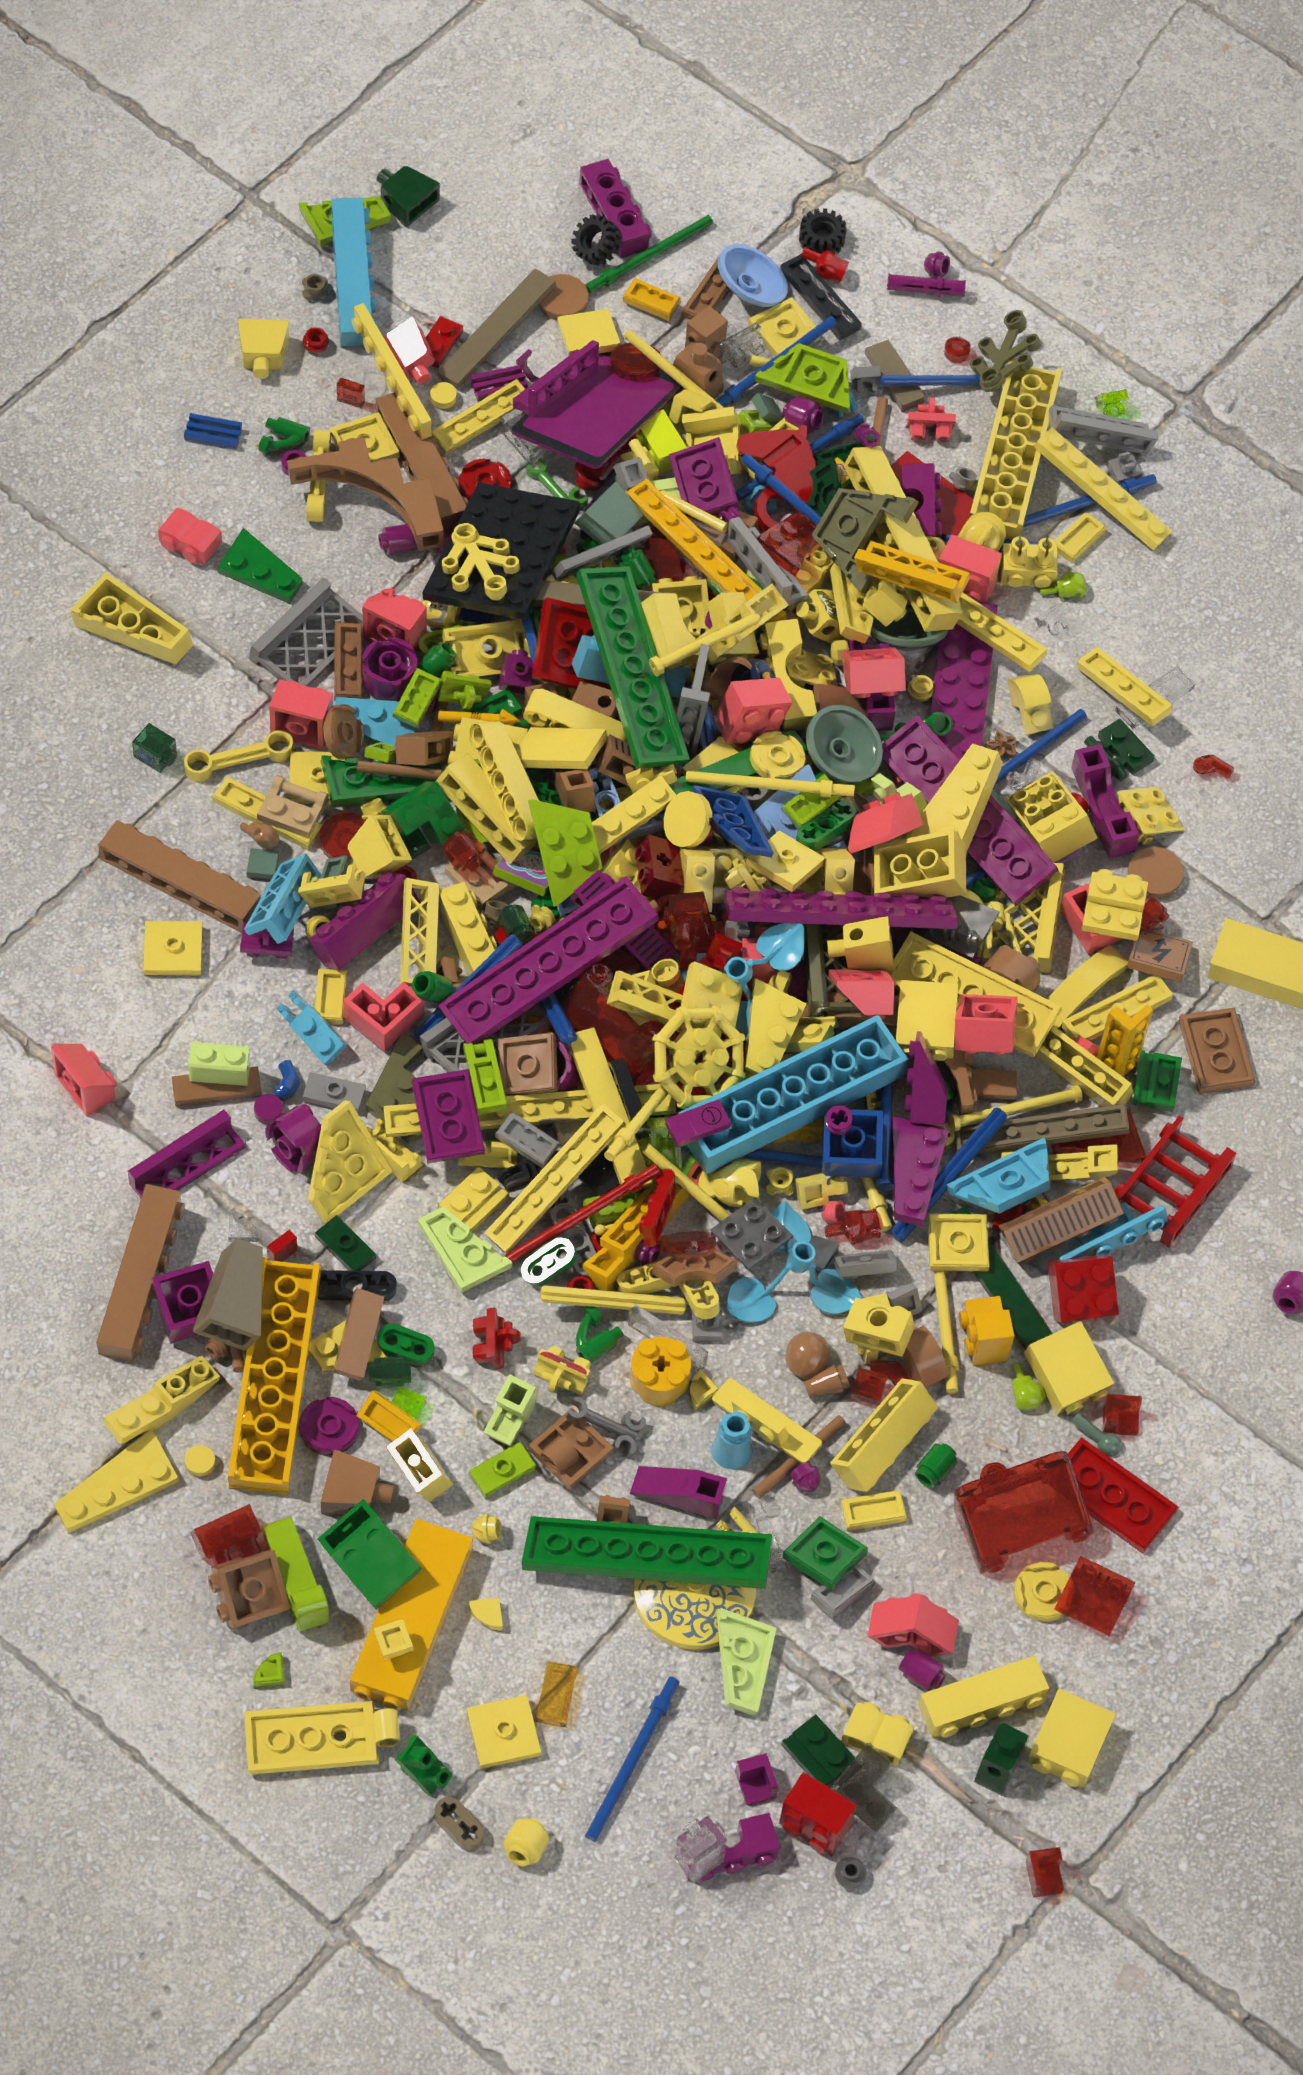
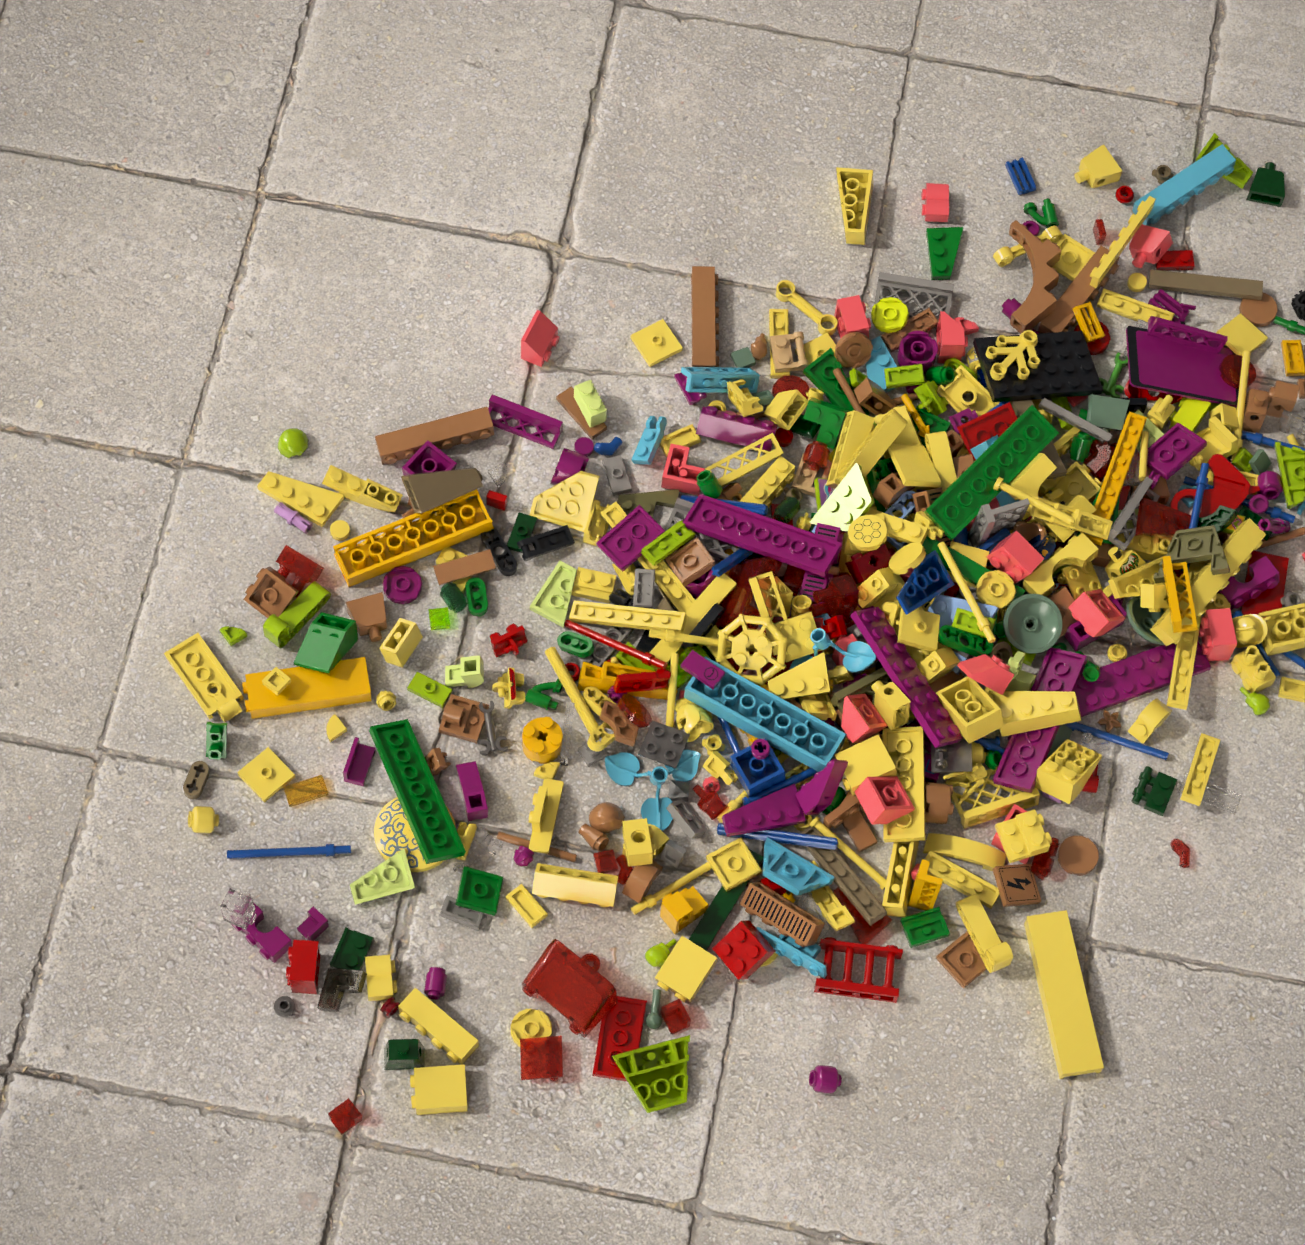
camera: 60 degrees right, 5 degrees up
(30, 1453) = (292, 442): none -> lime hair
(144, 1508) = (293, 517): none -> lavender pin
(154, 748) = (779, 261): clear green brick -> none
(316, 667) = (889, 315): none -> neon yellow tile
(382, 1222) = (546, 542): none -> black plate
(387, 1416) = (424, 611): yellow tile -> none
(470, 469) = (1086, 324): none -> yellow tile
(557, 1608) = (358, 763): none -> magenta panel
(625, 843) = (867, 532): none -> light yellow tile
(630, 473) = (1145, 407): light grey tile -> none
(733, 1443) = (519, 803): medium azure plant -> none
(822, 438) = (1259, 504): none -> magenta tile
(913, 1623) = (458, 961): coral brick -> none
(924, 1741) = (390, 1007): none -> dark red bush
(936, 1465) = (575, 925): green brick -> none
(1095, 782) = (1097, 807): magenta arch -> none
(1150, 812) = (1119, 830): light yellow hinge -> none
(1187, 1470) = (657, 1073): none -> lime wedge
(1210, 1021) = (991, 950): none -> light yellow beam

